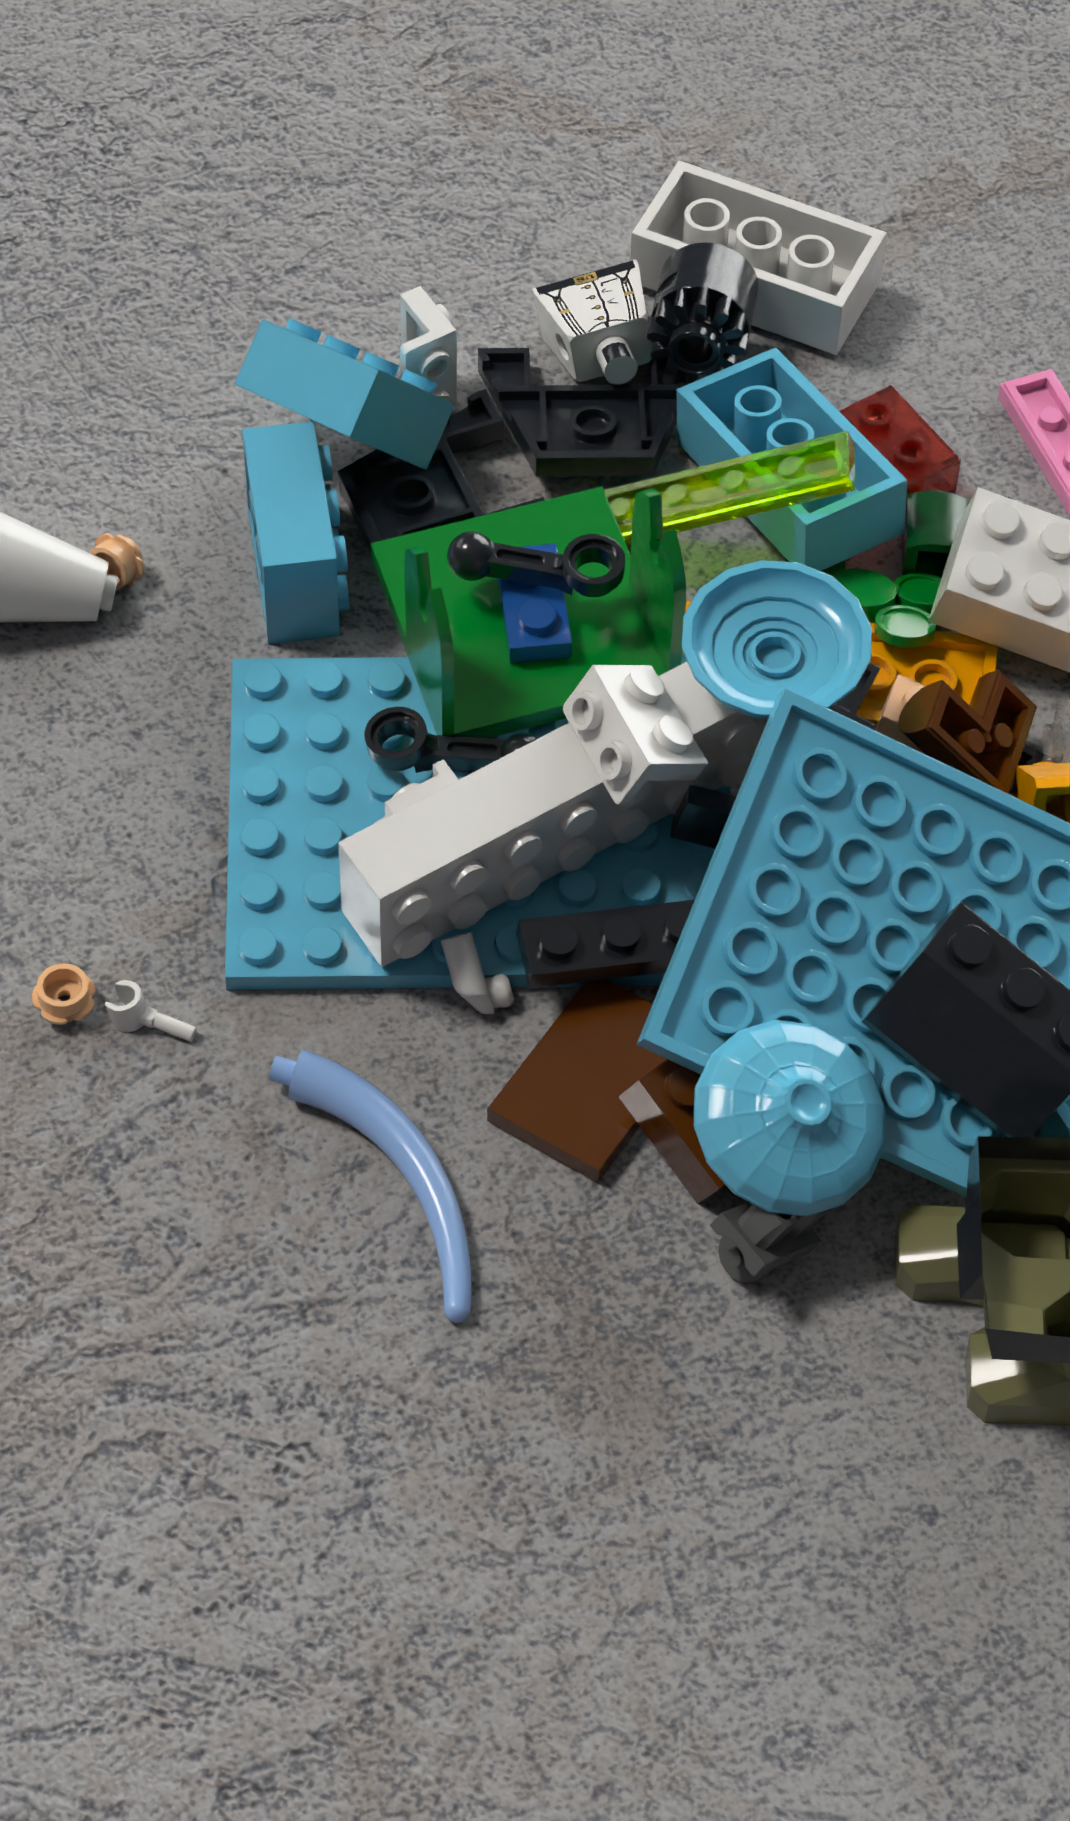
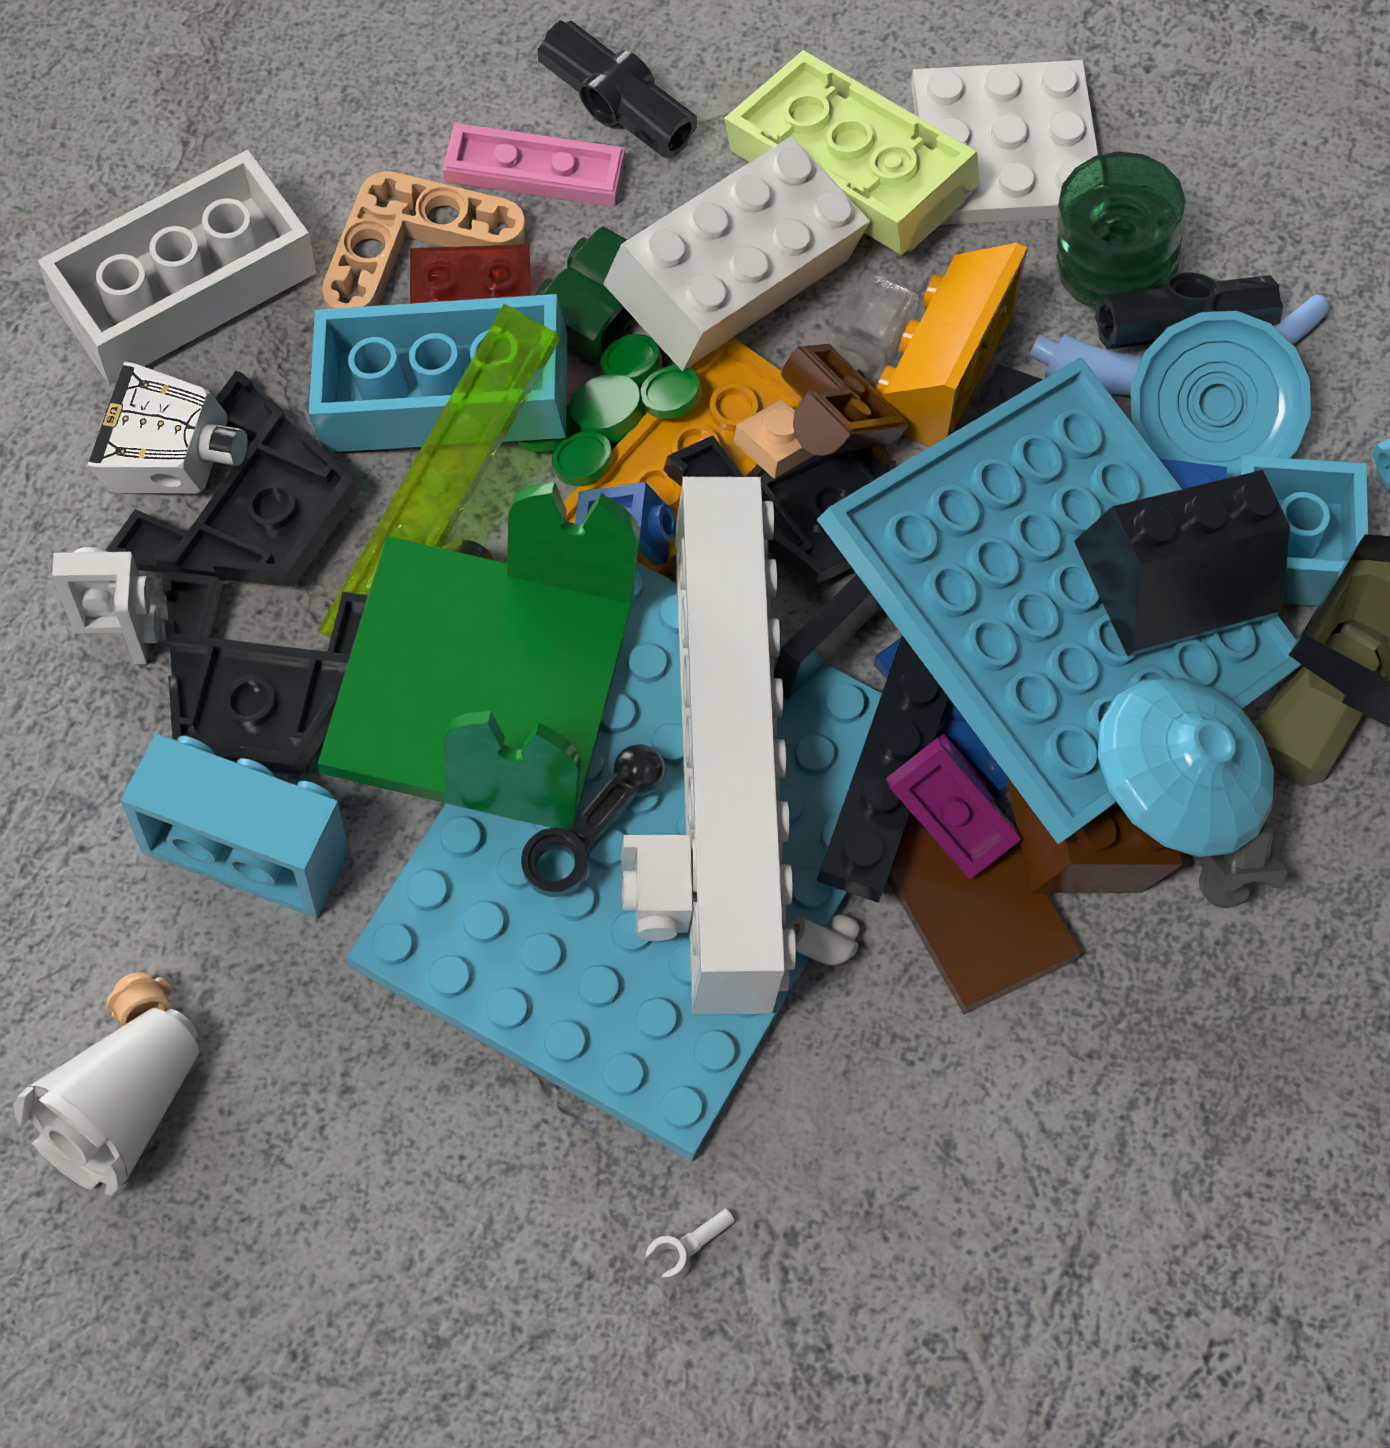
camera: 60 degrees left, 10 degrees up
(63, 981) = (618, 1292): light nougat plate -> none
(346, 394) = (121, 689): medium azure brick -> none
(370, 1111) = (926, 1101): light blue animal -> none
(476, 557) = (426, 681): black piece -> none
(535, 619) = (485, 664): blue plate -> none
(632, 729) = (749, 660): white bracket -> none
(637, 970) = (954, 806): none -> magenta piece
(703, 309) = (230, 343): black gear -> none
(774, 631) = (743, 486): medium azure hat -> none
(922, 378) = (395, 223): none -> light nougat beam

